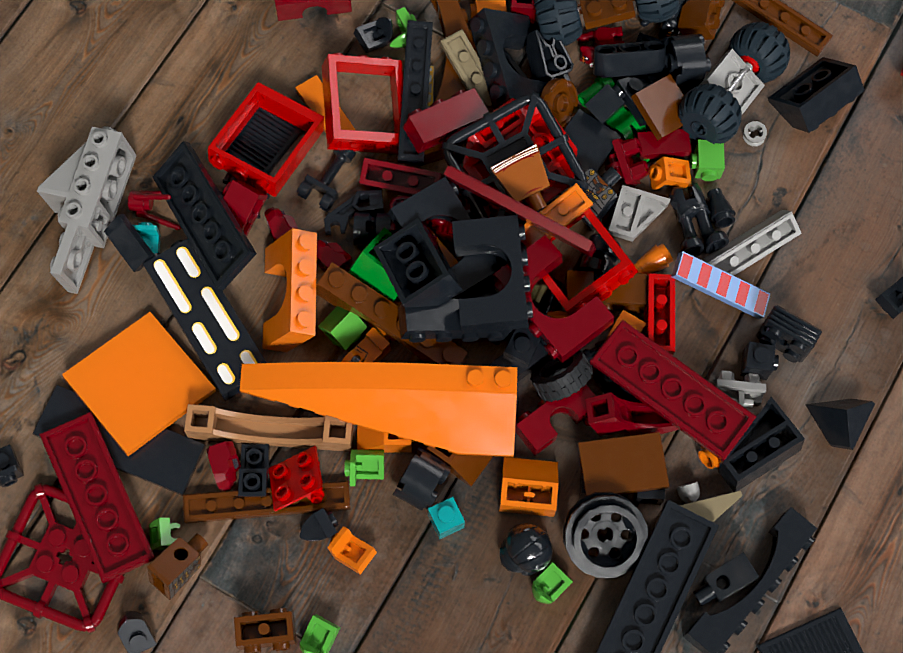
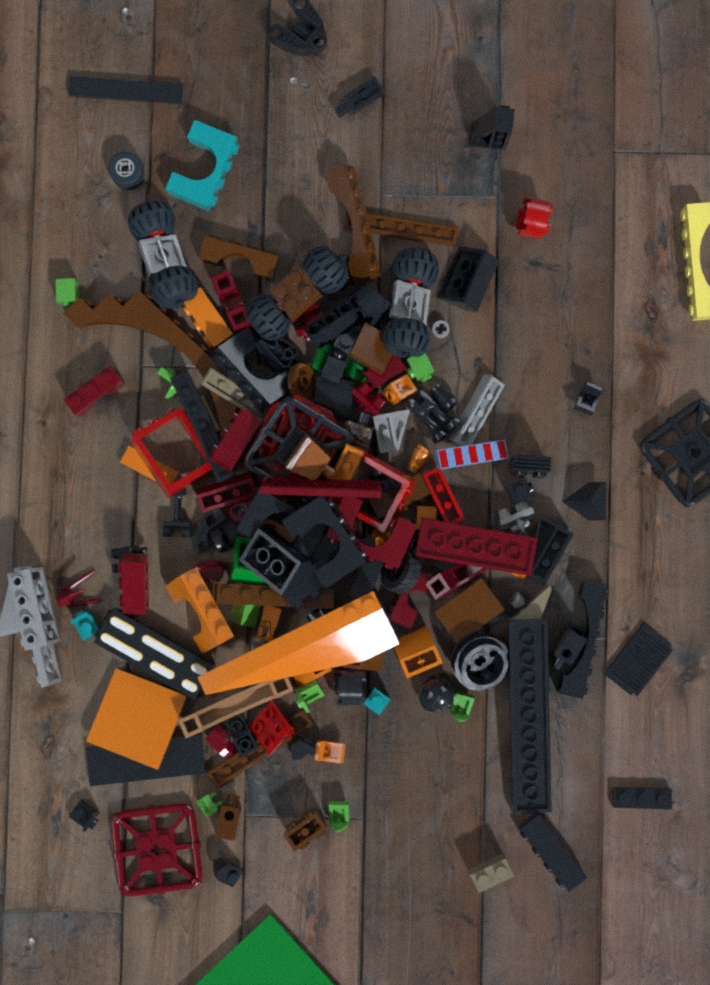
camera: 25 degrees left, 15 degrees up
(97, 497) = (154, 804): dark red tile -> none
(128, 242) = (76, 633): black tile -> none
(204, 216) = (114, 591): black tile -> none
(264, 140) = (119, 504): black window -> none
(279, 222) = (168, 566): dark red rock -> none
(280, 106) = (122, 483): red window -> none
(374, 34) = (151, 395): black plate -> none

